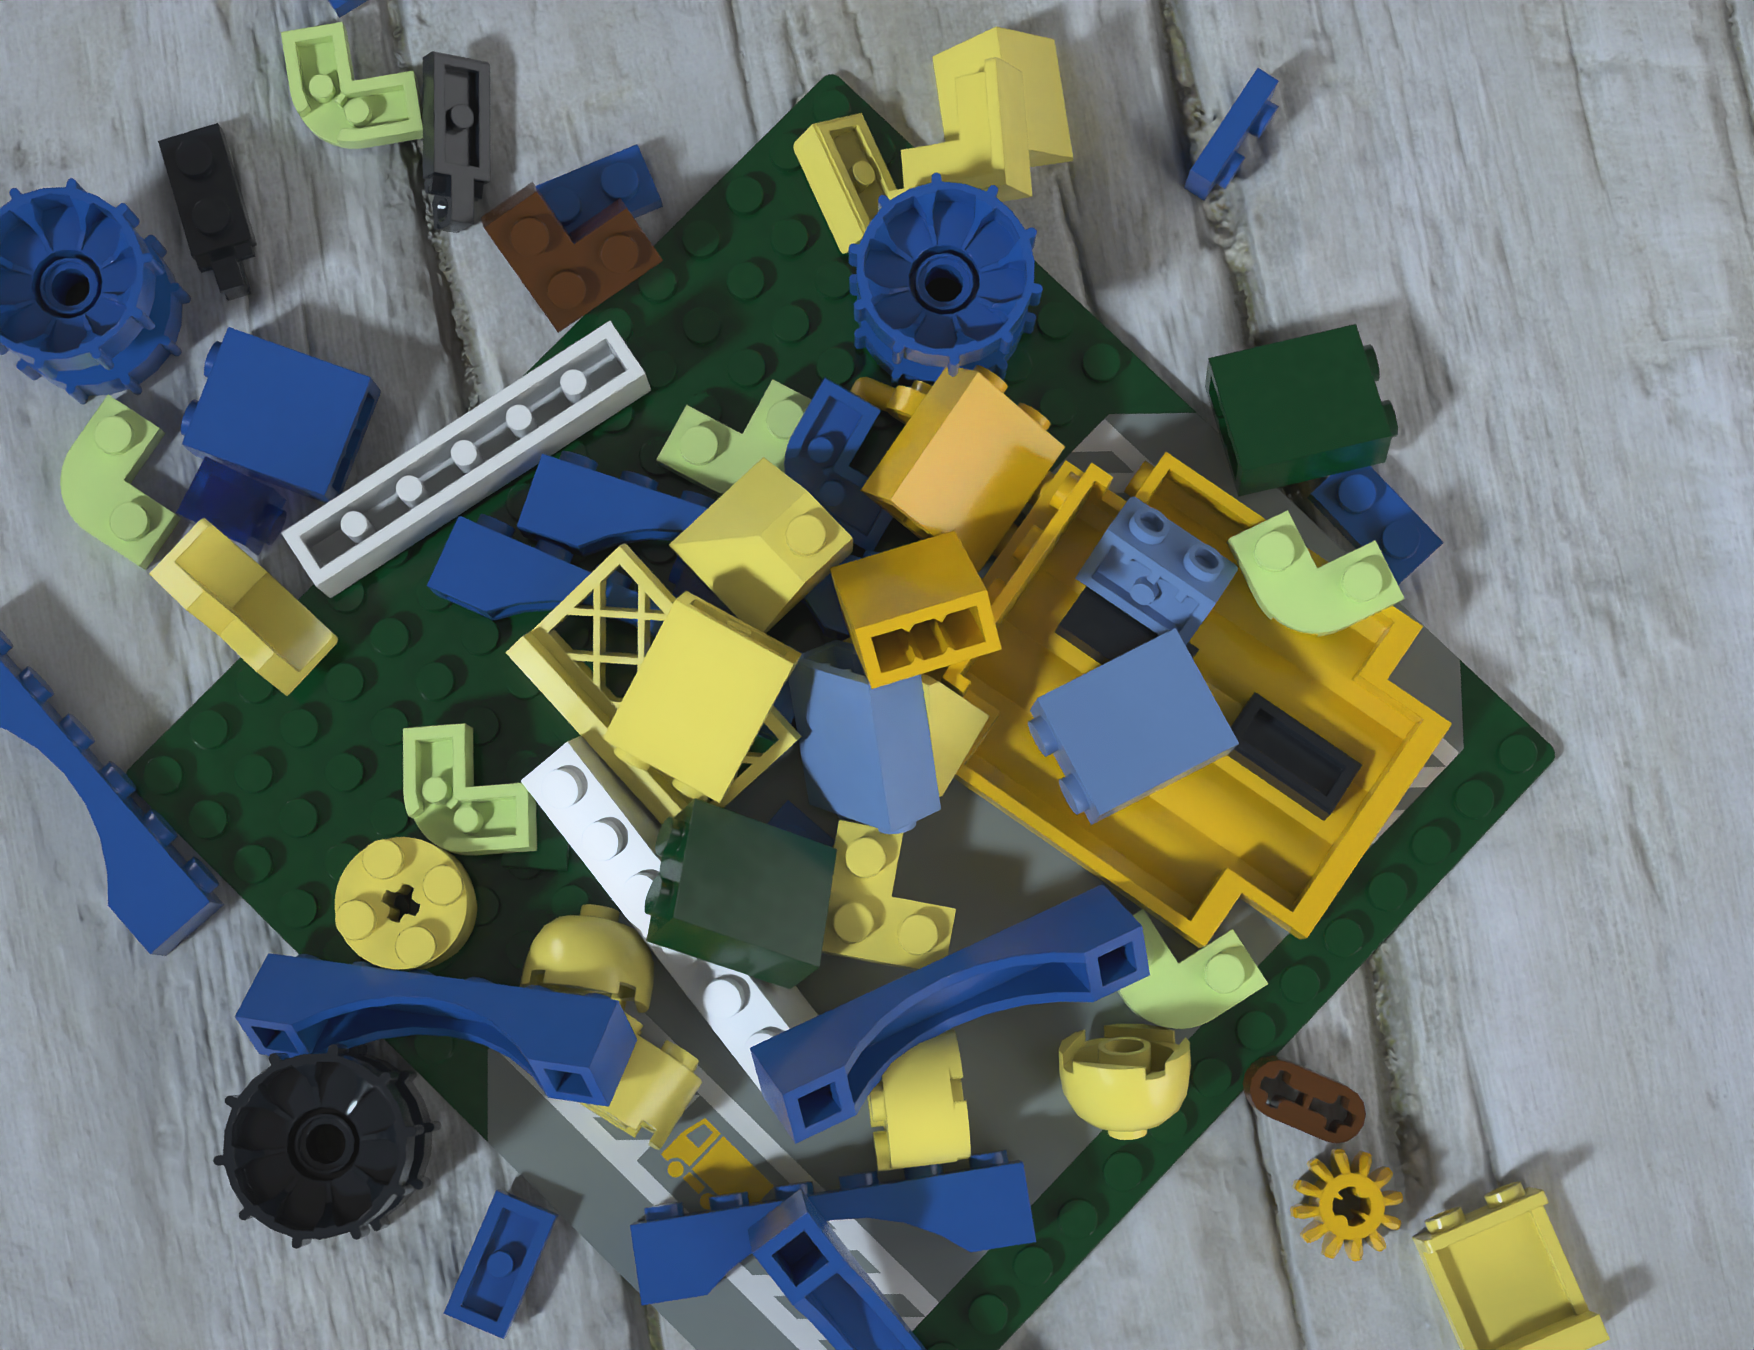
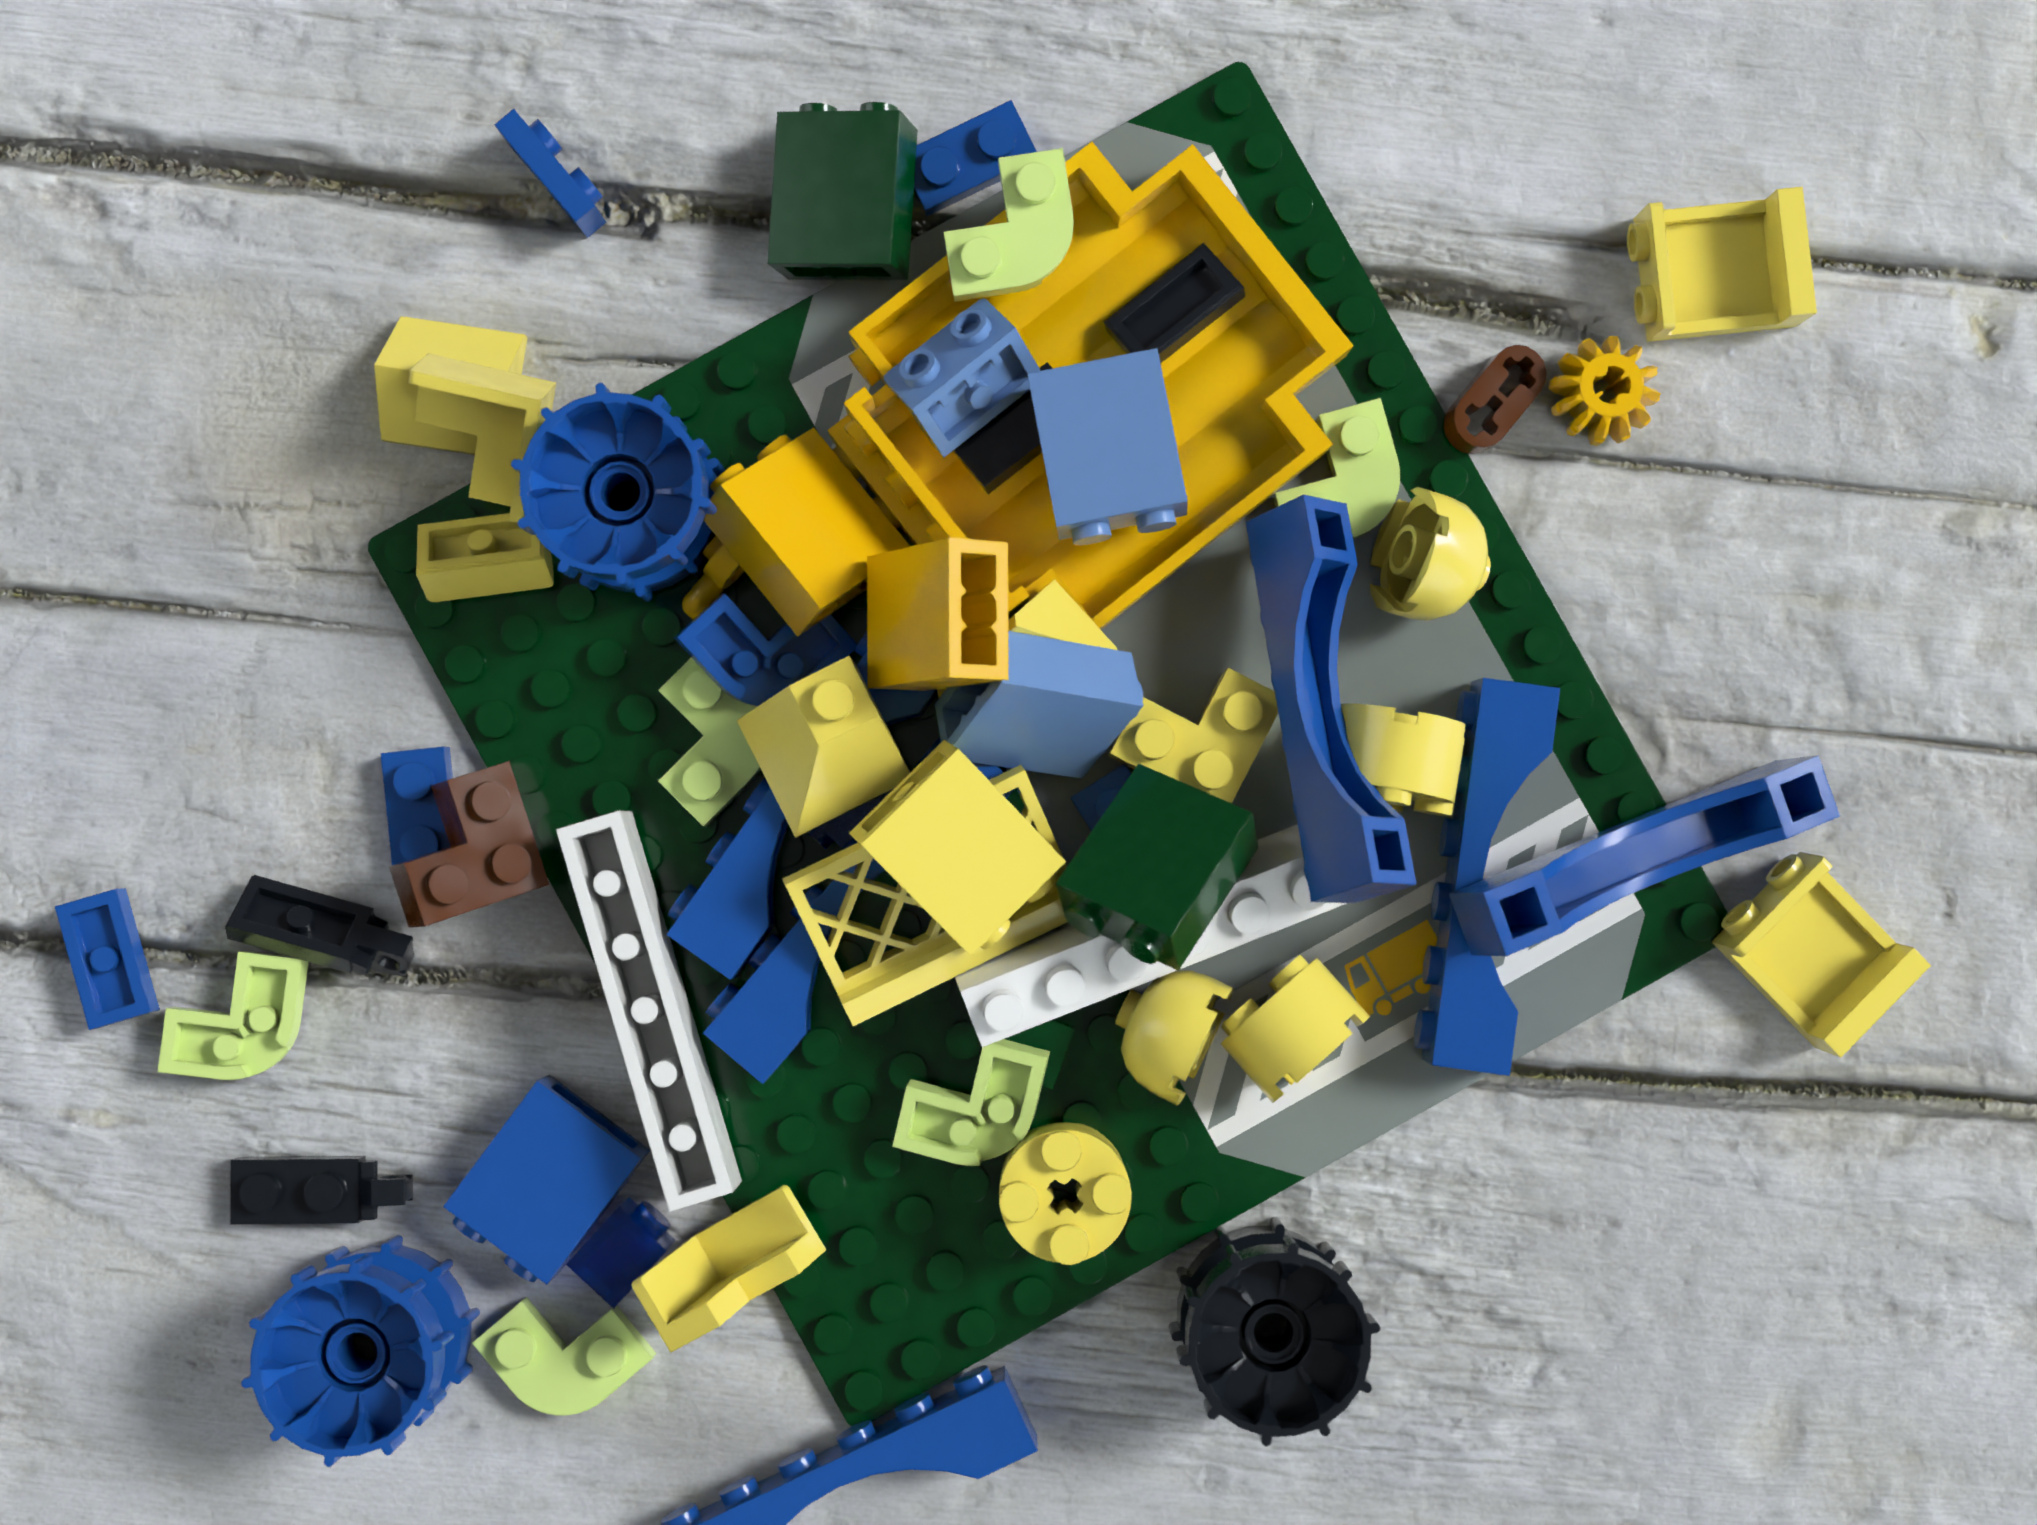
camera: 75 degrees left, 5 degrees up
(501, 1264) = (1424, 1197): blue plate -> none
(563, 1040) = (1139, 1301): blue arch -> none

